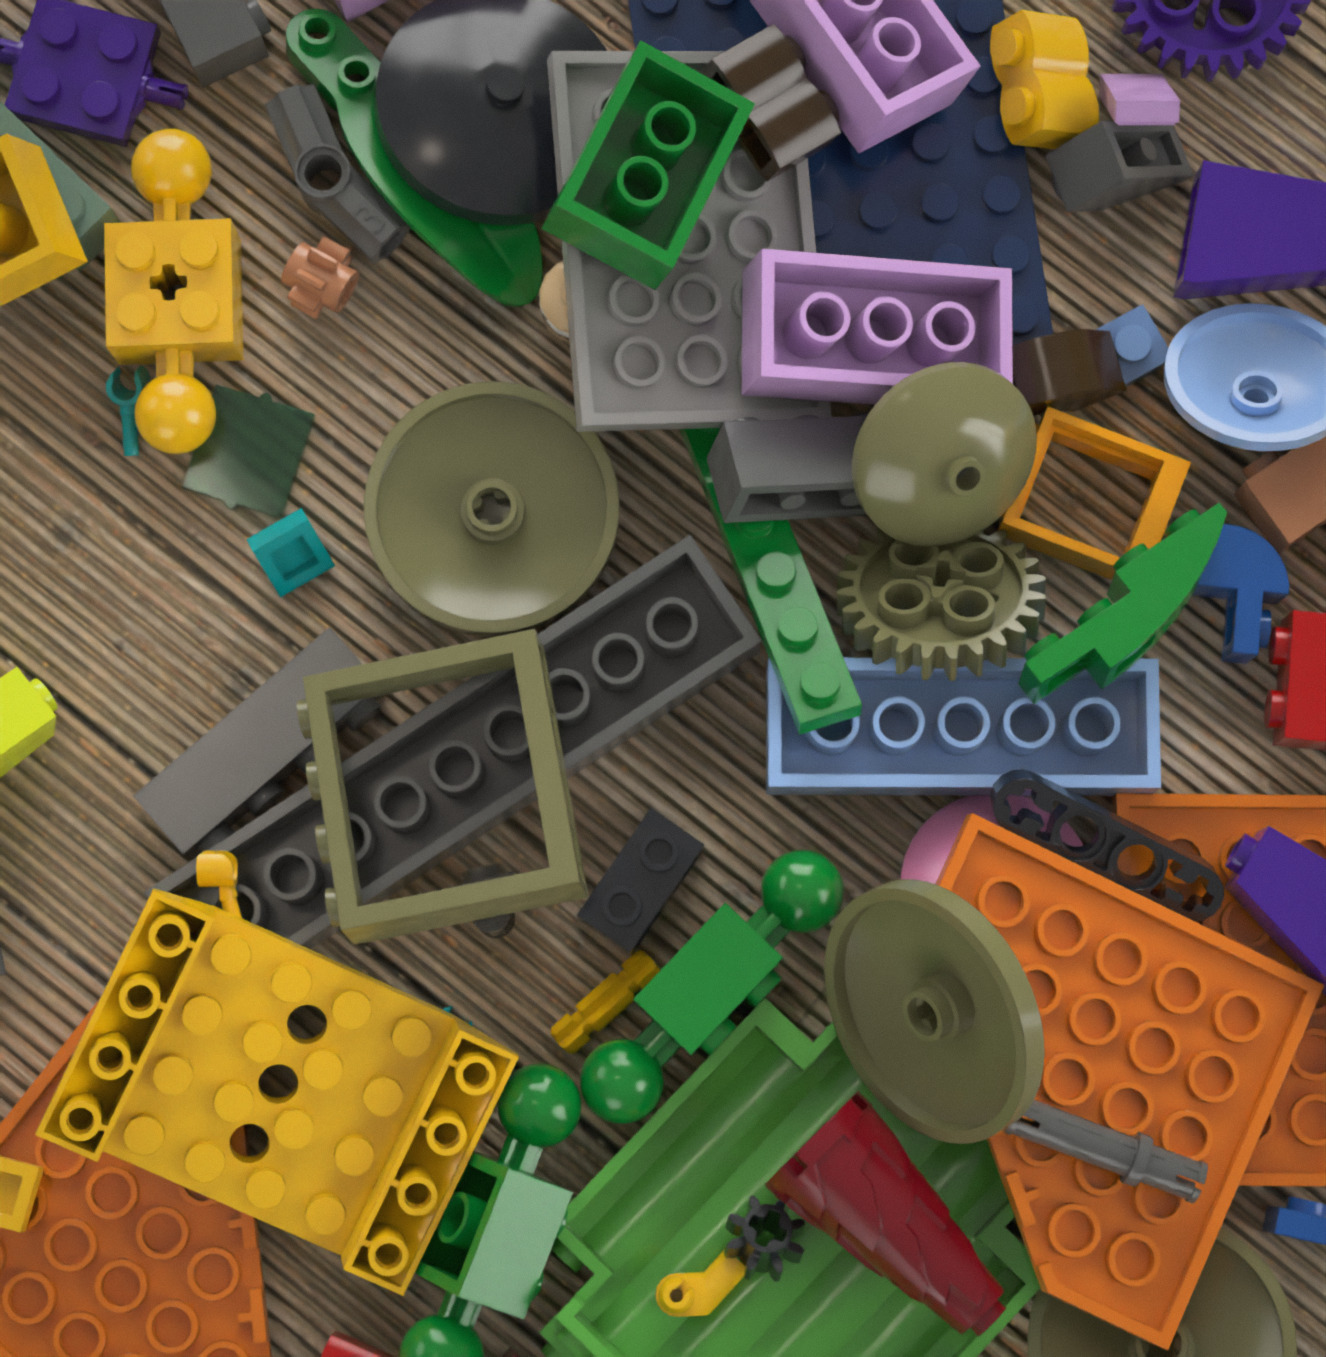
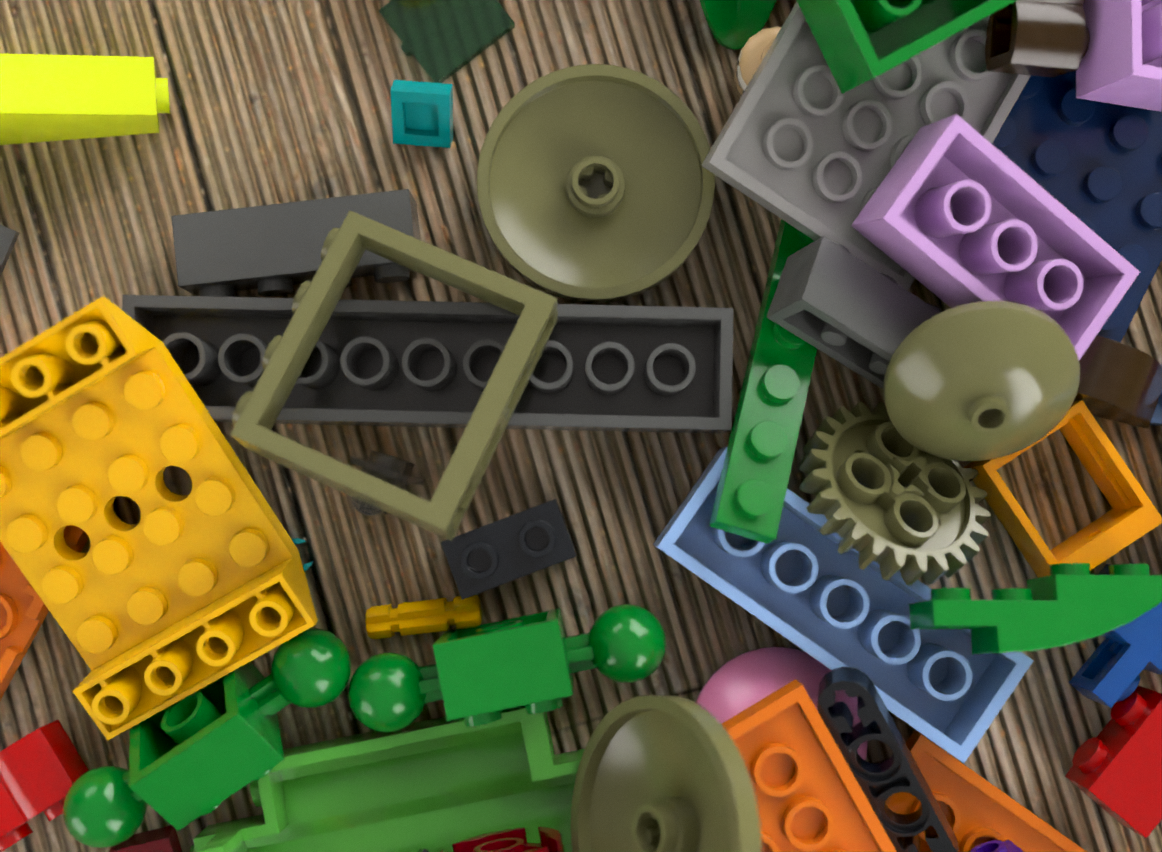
camera: 35 degrees right, 5 degrees up
(220, 870) = (188, 320): yellow hand -> none

